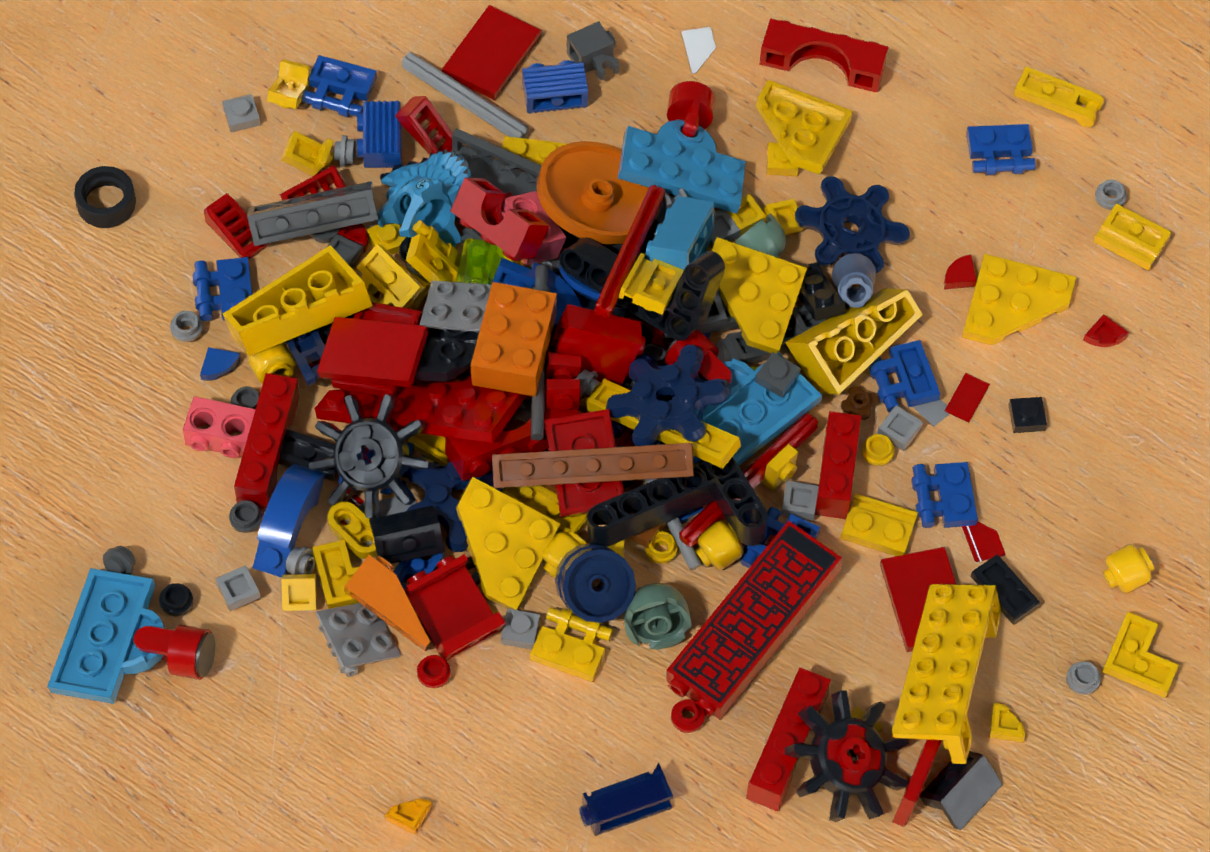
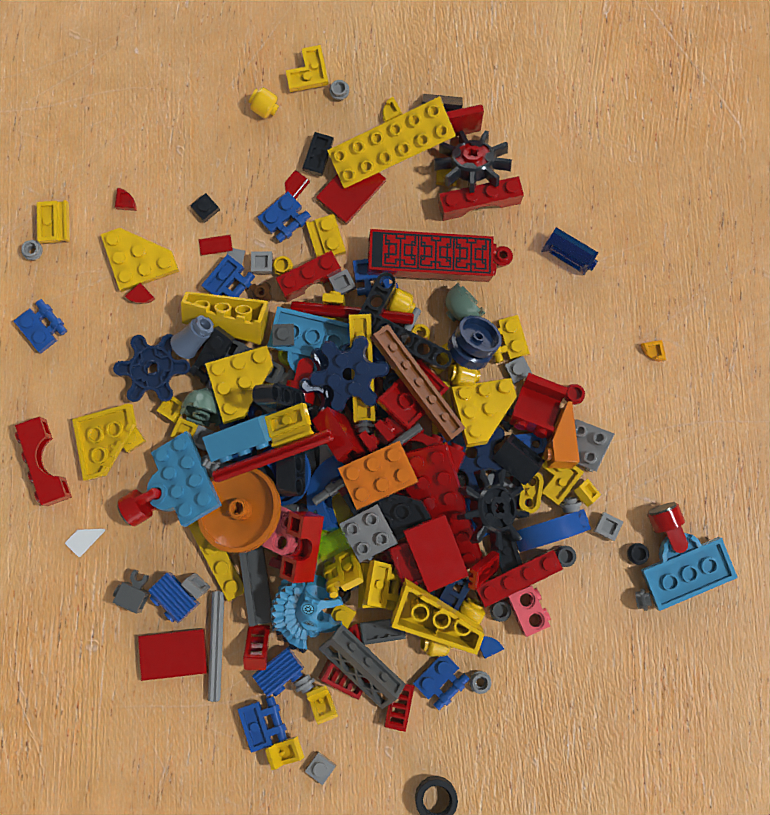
camera: 125 degrees left, 20 degrees up
(308, 401) = (483, 570): none -> red tile
(549, 114) = (195, 586): none -> light grey plate

